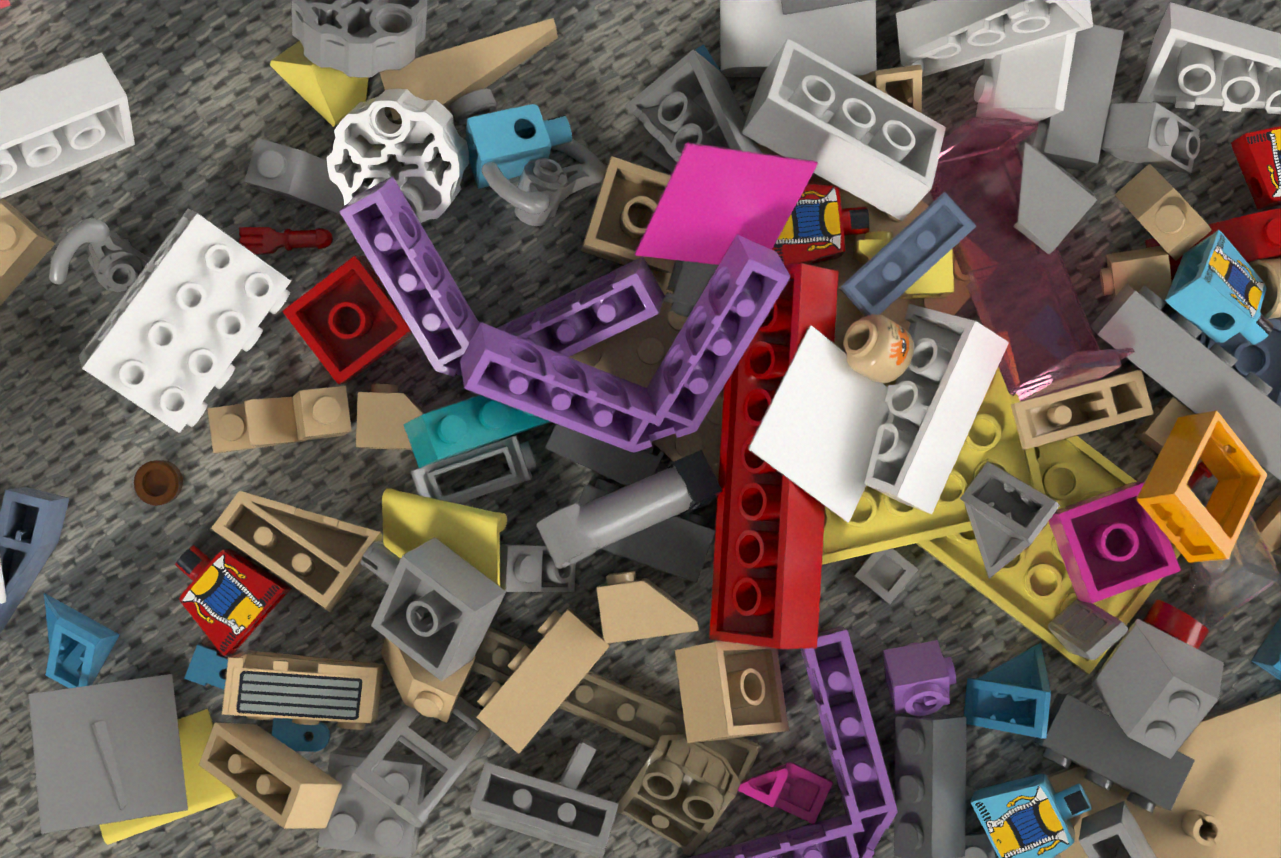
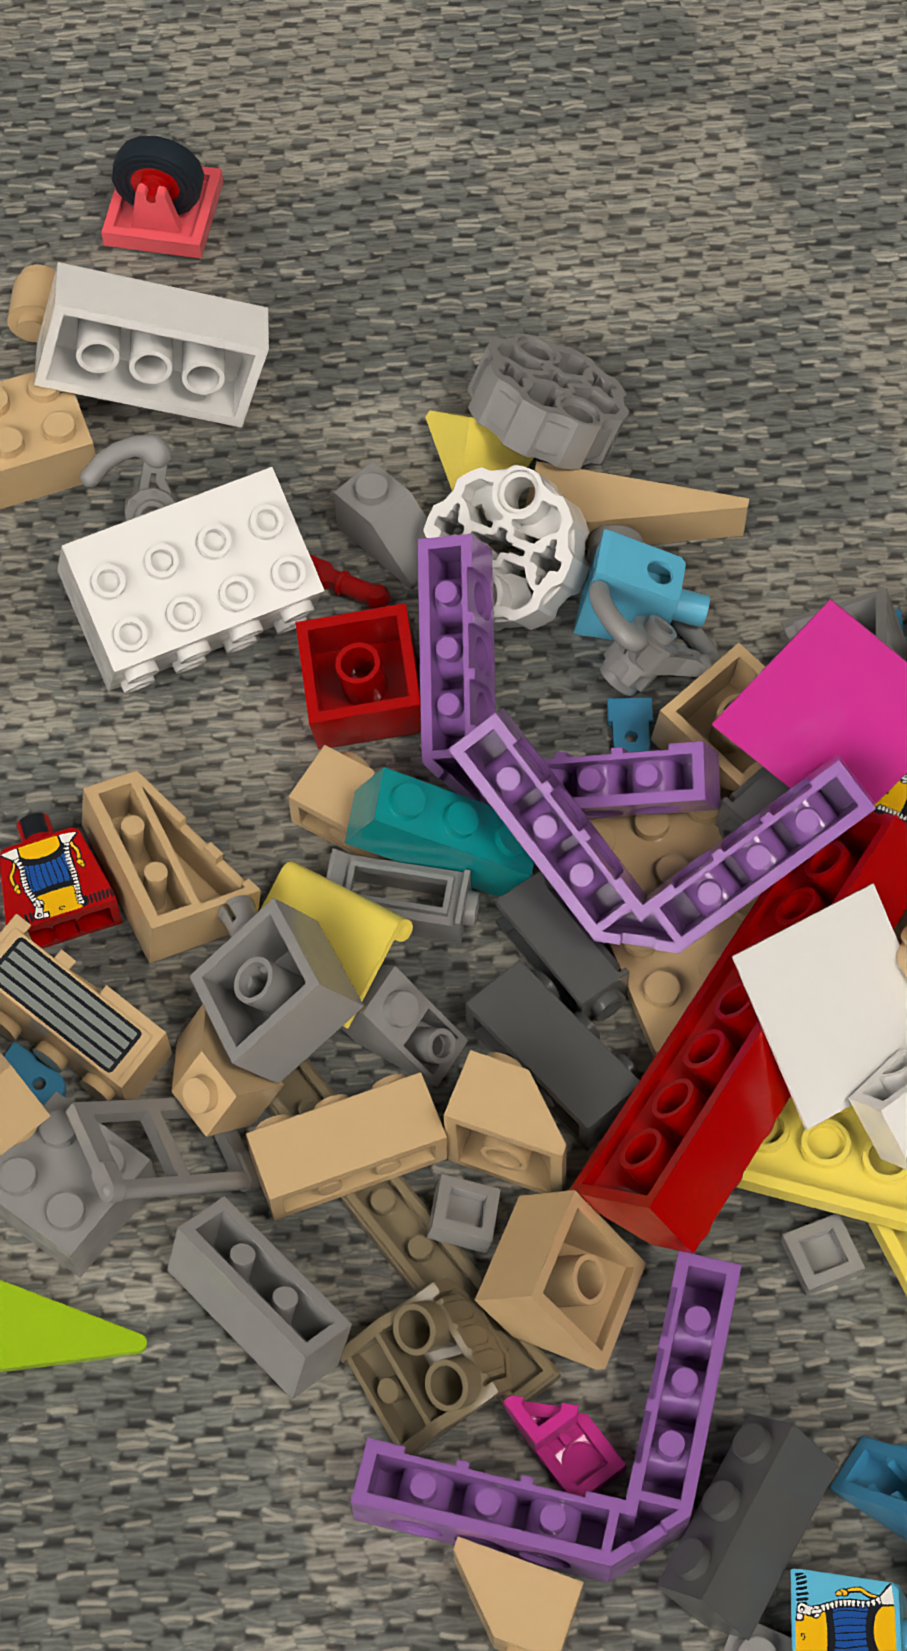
camera: 25 degrees right, 25 degrees down
(158, 482) = (52, 743): reddish brown tile -> none
(253, 424) = (194, 737): tan slope -> none
(321, 413) = (271, 752): tan brick -> none
(555, 239) = (630, 718): none -> dark azure piece
(578, 763) = (334, 1267): light grey tile -> none
(584, 529) = (482, 974): light grey piece -> none
(642, 675) = (463, 1213): none -> light grey tile
(918, 678) = (802, 1385): medium lavender brick -> none

